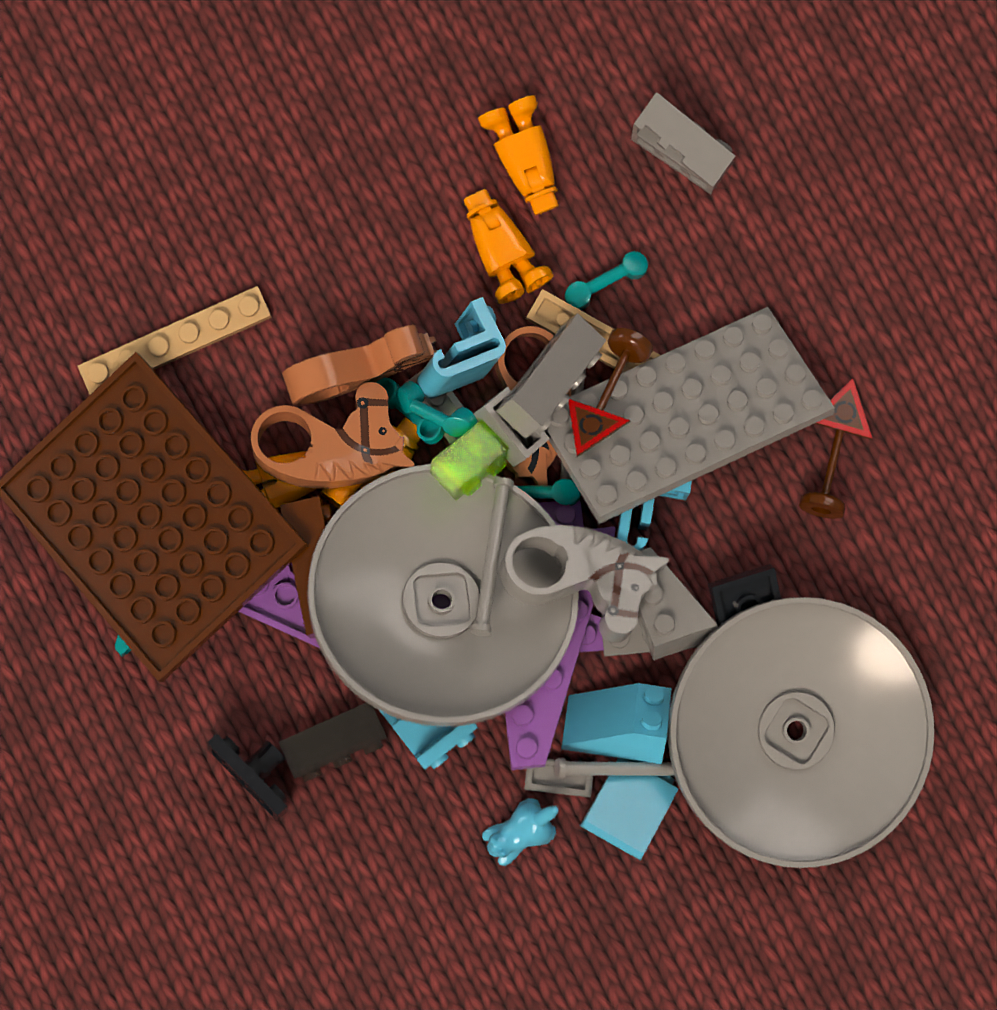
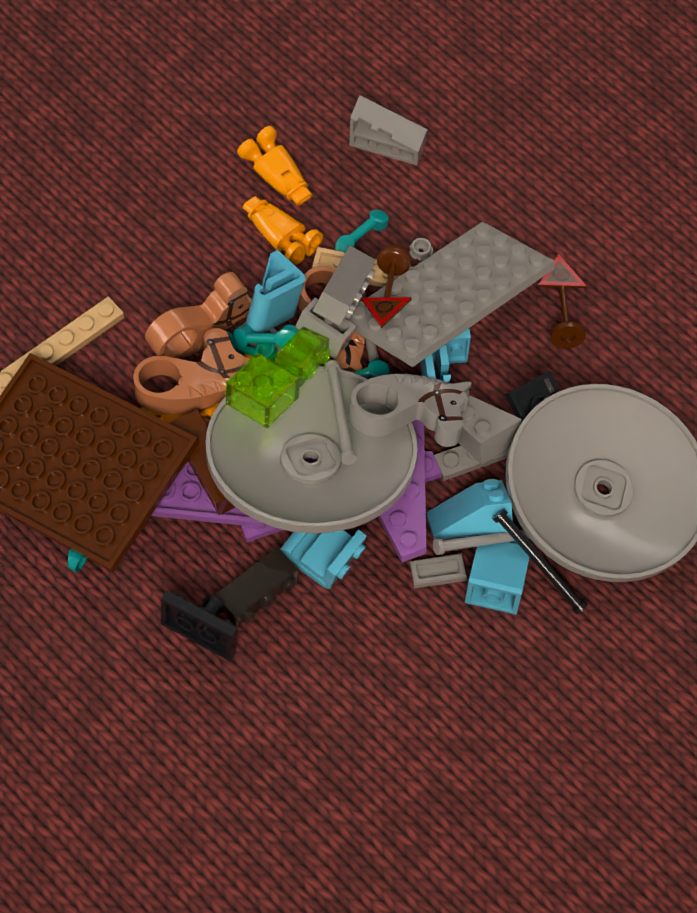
camera: 20 degrees left, 20 degrees down
(403, 502) = (262, 390): none -> clear neon green brick
(525, 828) = (425, 609): medium azure animal -> none
(648, 753) = (540, 561): none -> black bar
(678, 318) = (421, 244): none -> light grey plate

